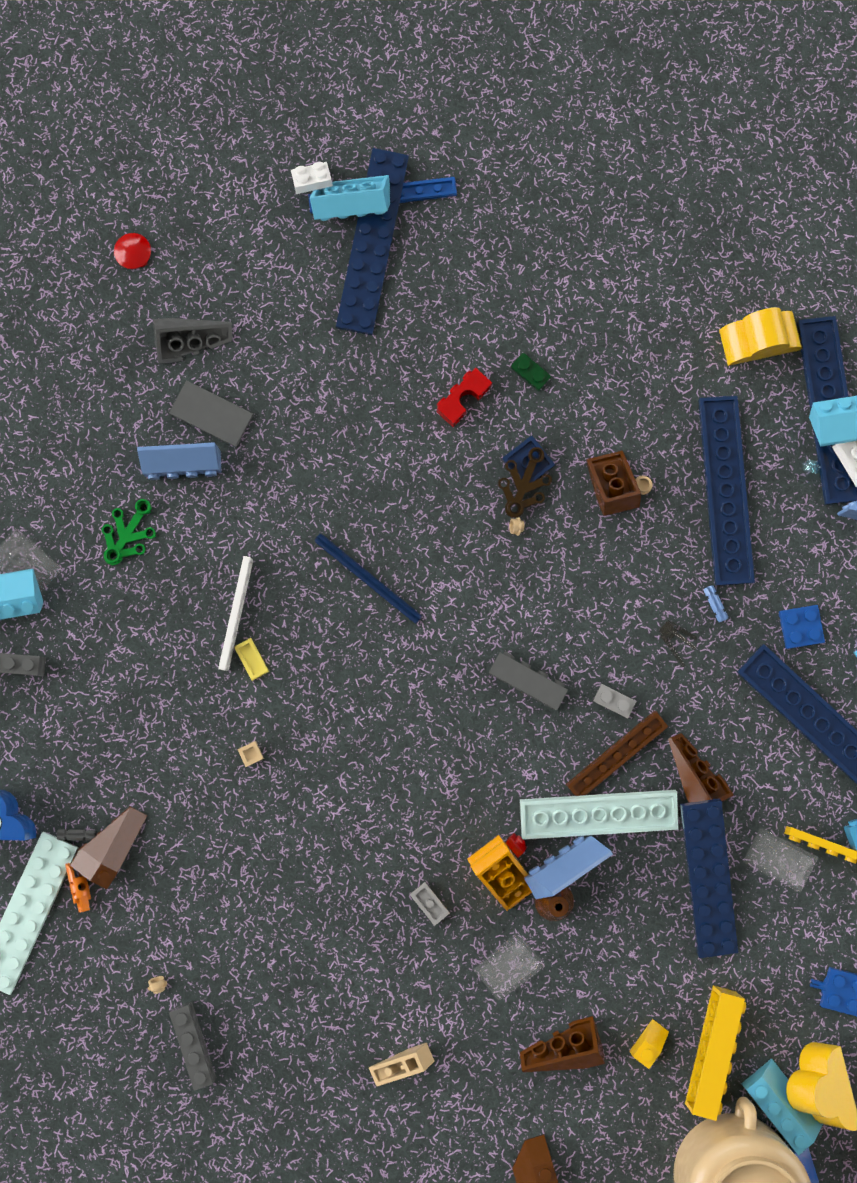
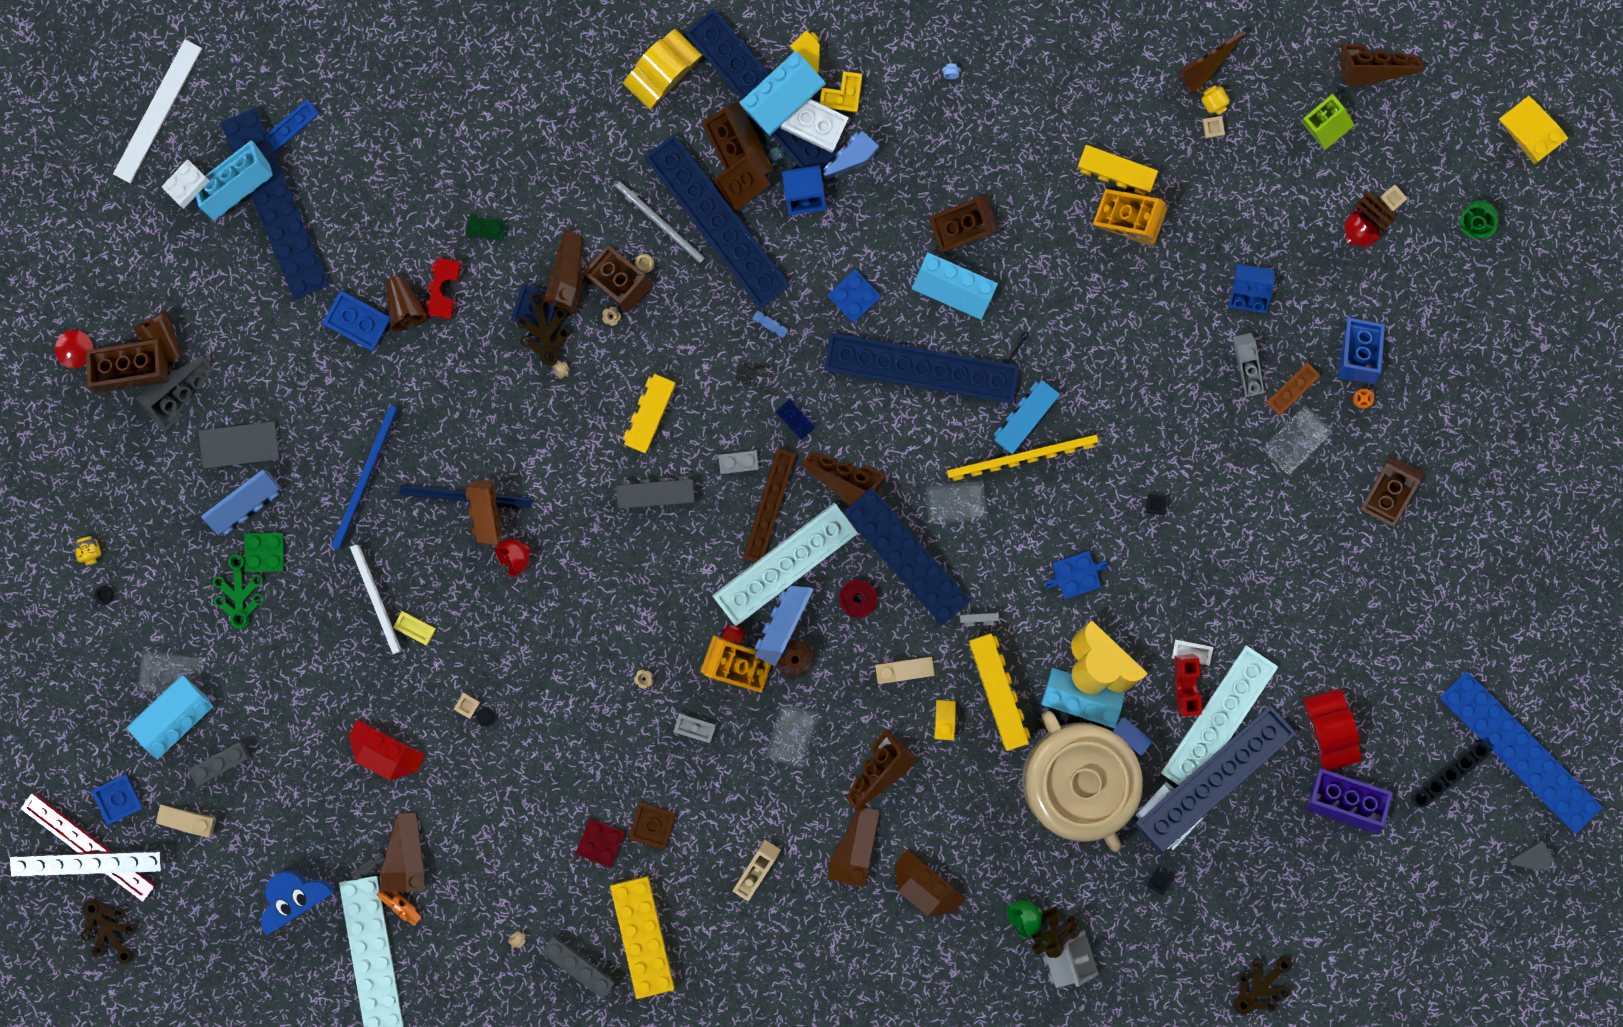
camera: 30 degrees left, 5 degrees up
(17, 462) = (104, 595): none -> black plate
(29, 417) = (87, 550): none -> yellow head
(154, 746) = (382, 752): none -> red wedge
(163, 289) = (126, 366): none -> reddish brown slope
(171, 514) = (264, 552): none -> green plate
(206, 284) = (160, 328): none -> reddish brown cone
(260, 774) = (486, 717): none -> black plate
(264, 1058) = (642, 937): none -> yellow brick
(284, 948) = (600, 843): none -> dark red plate
(295, 507) = (364, 478): none -> blue tile
(328, 110) = (157, 111): none -> white tile
(337, 963) = (652, 825): none -> reddish brown tile
(374, 600) = (484, 512): none -> dark orange slope
(374, 653) = (513, 555): none -> red cylinder
(375, 376) = (356, 321): none -> blue plate
(409, 831) = (643, 684): none -> tan plate
(421, 389) = (403, 305): none -> reddish brown cone
(494, 1109) = (854, 852): none -> reddish brown wedge
(566, 611) = (649, 414): none -> yellow brick
(570, 454) = (566, 277): none -> reddish brown wedge
(584, 514) = (616, 316): none -> tan plate
(641, 974) = (904, 670): none -> tan slope
(647, 895) = (867, 604): none -> dark red plate
(668, 425) = (632, 197): none -> light grey bar
(686, 697) = (795, 419): none -> clear blue plate
(742, 978) = (987, 619): none -> light grey plate
(772, 469) = (741, 182): none -> reddish brown plate
(783, 439) = (735, 137): none -> reddish brown slope
(818, 511) = (804, 190): none -> blue slope

